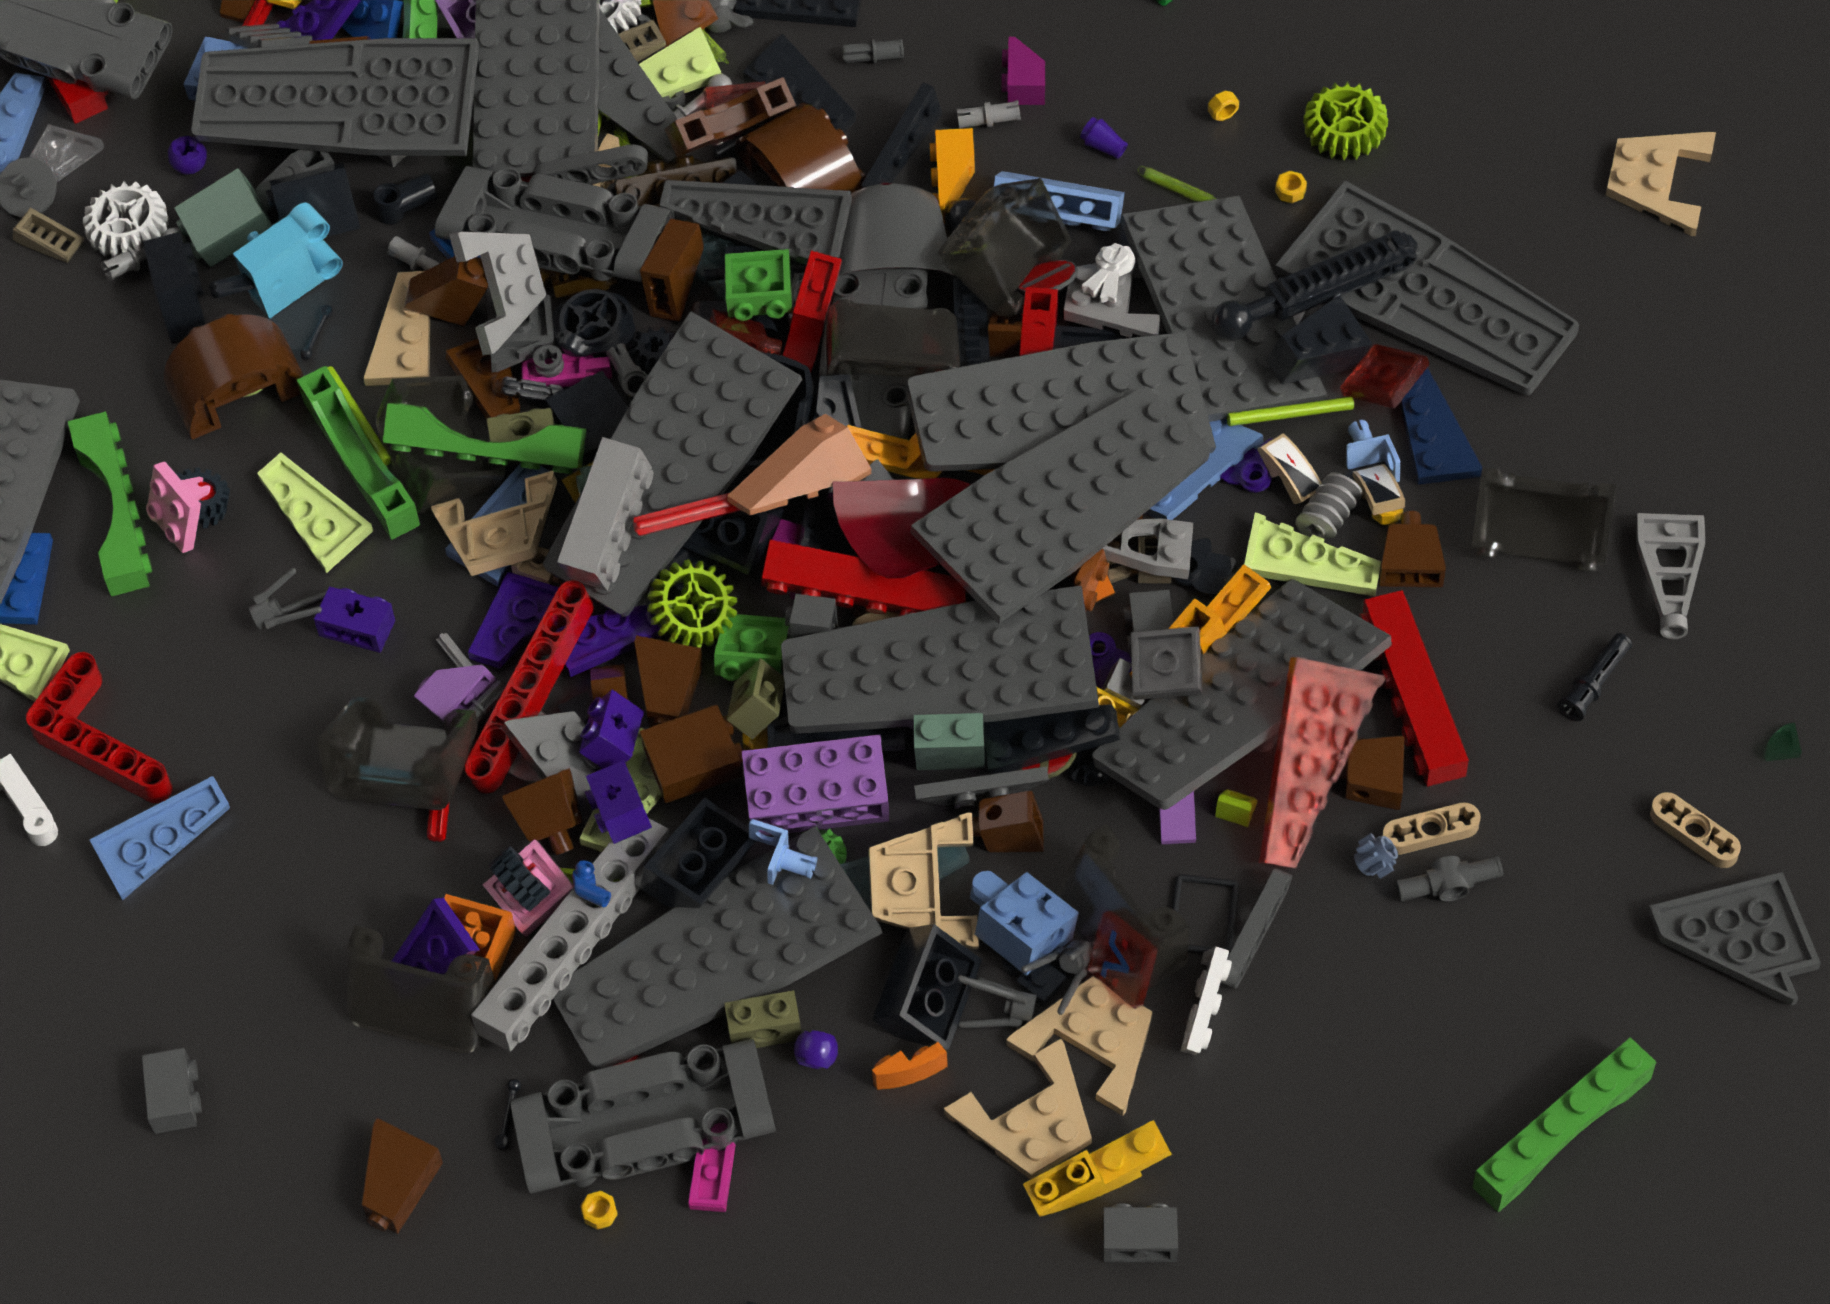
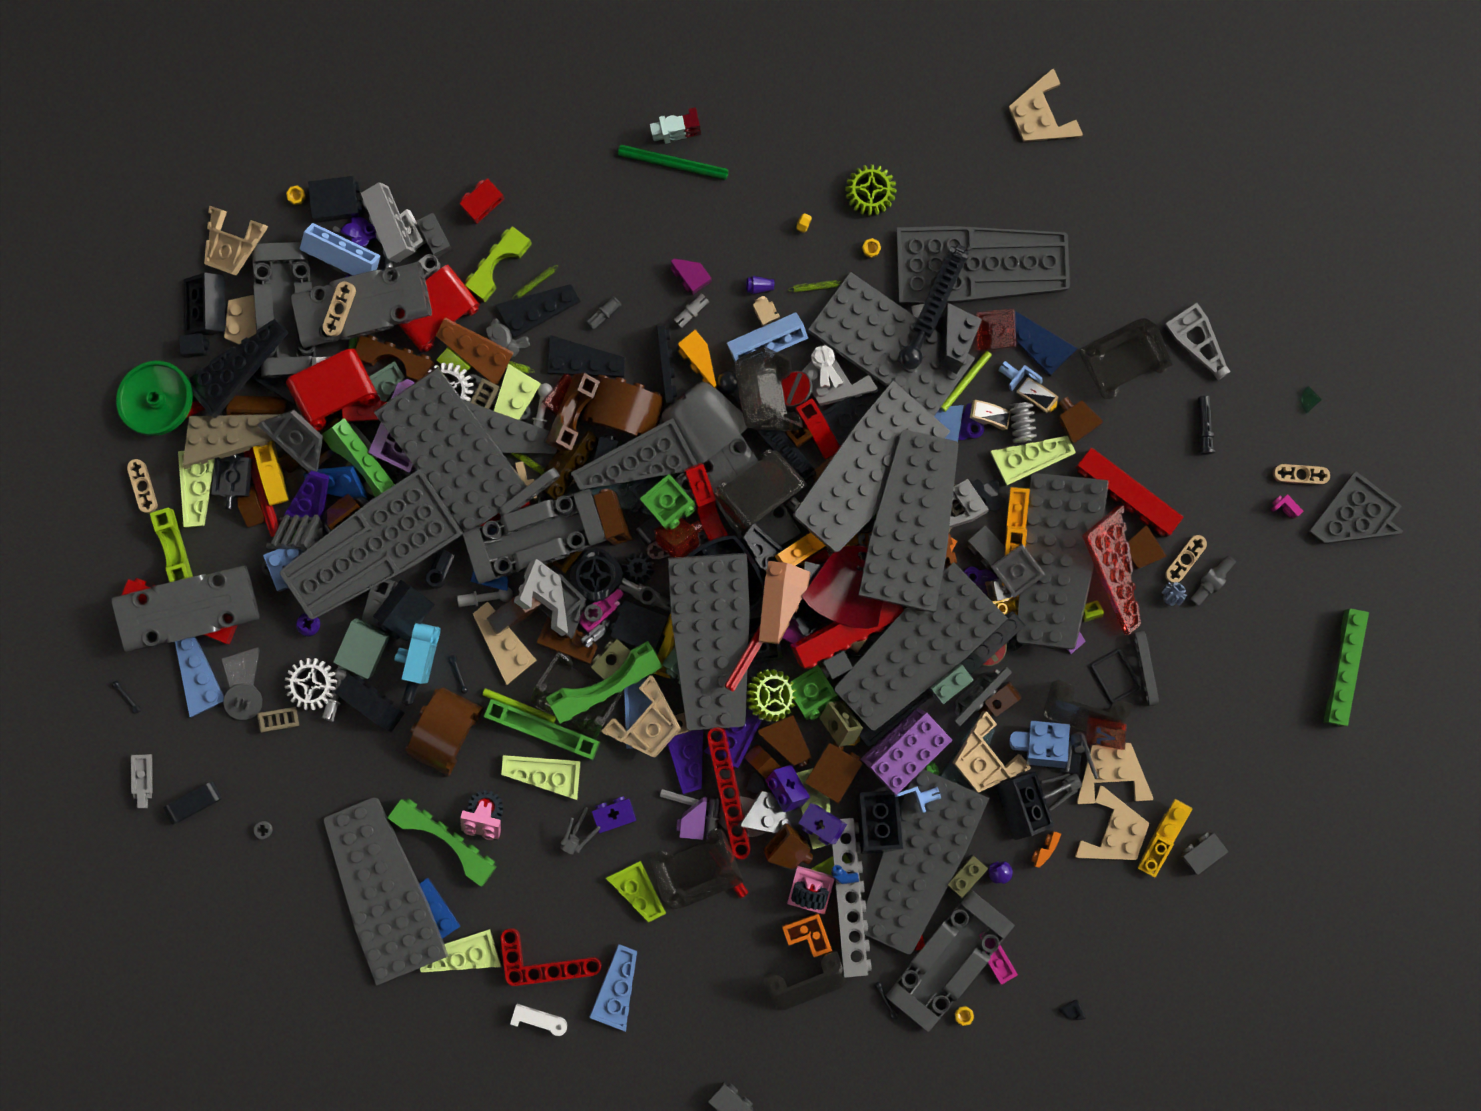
camera: 40 degrees left, 25 degrees up
(299, 722) = (638, 890): none -> lime wing
(396, 1175) = (864, 1067): reddish brown slope -> none
(436, 940) = (798, 957): dark purple wing -> none
(605, 514) = (710, 693): light grey brick -> none
(1084, 166) = (765, 311): none -> tan brick
(1207, 986) = (1150, 715): white wing -> none
(1641, 850) = (1290, 507): none -> dark pink bracket

